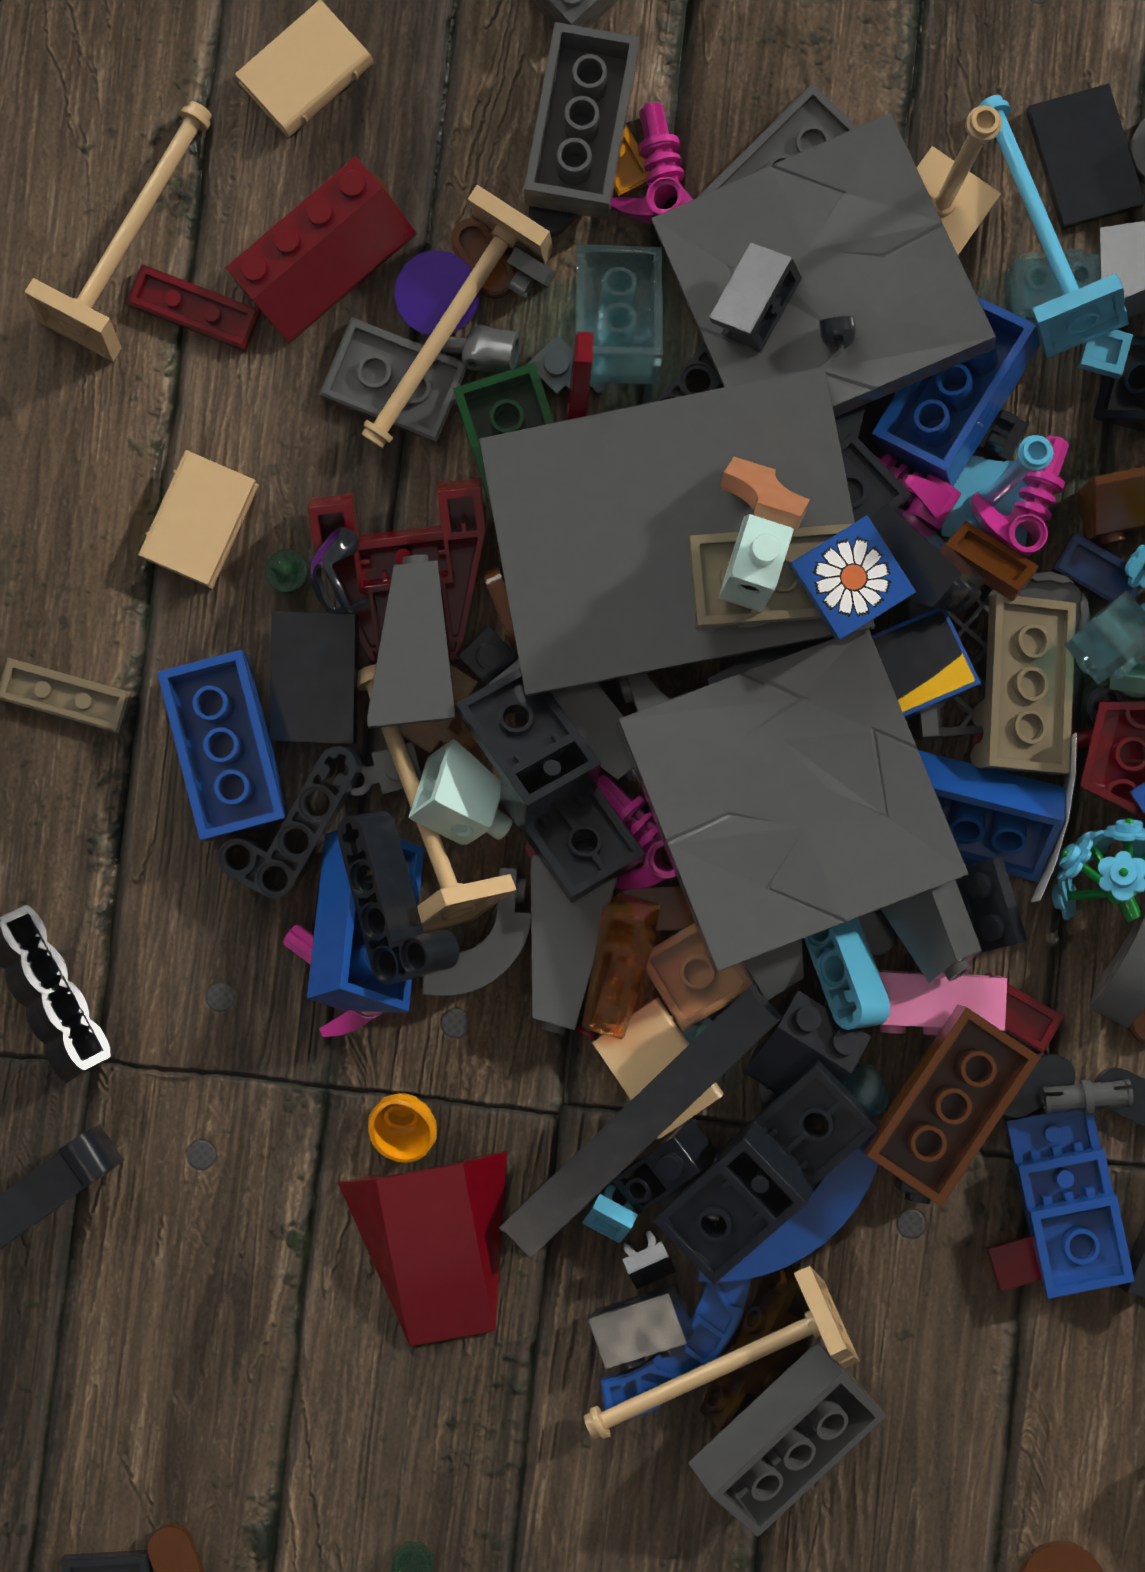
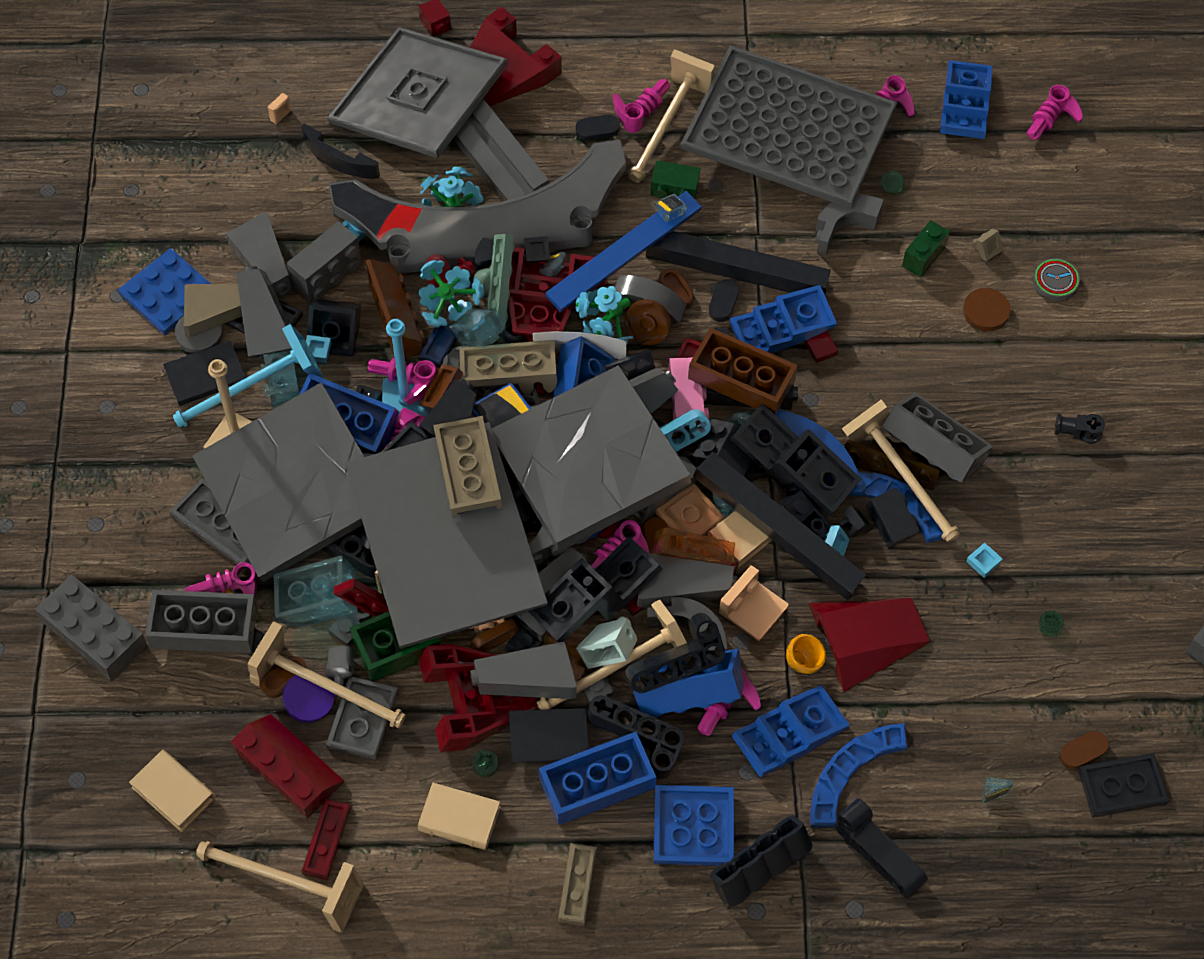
camera: 100 degrees left, 25 degrees down
(124, 1401) = (995, 788): none -> clear light blue slope
(131, 894) = (693, 825): none -> blue plate
(208, 1162) = (845, 764): none -> blue tile
(275, 1080) = (790, 730): none -> blue slope
(337, 546) = (474, 718): black piece -> none
(506, 1055) = (752, 605): none -> light nougat bracket
(529, 271) = (292, 647): dark grey tile -> none
(546, 1473) = (984, 560): none -> medium azure plate
(755, 562) = (463, 467): light aqua torso -> none
(756, 296) = (305, 506): hinge -> none
(764, 493) = (418, 482): nougat tile -> none
(837, 328) = (323, 460): black hinge -> none
(852, 578) = (466, 427): tile -> none
(1086, 1096) = (726, 316): dark grey pin -> none
(1092, 949) = (647, 322): none -> reddish brown tile

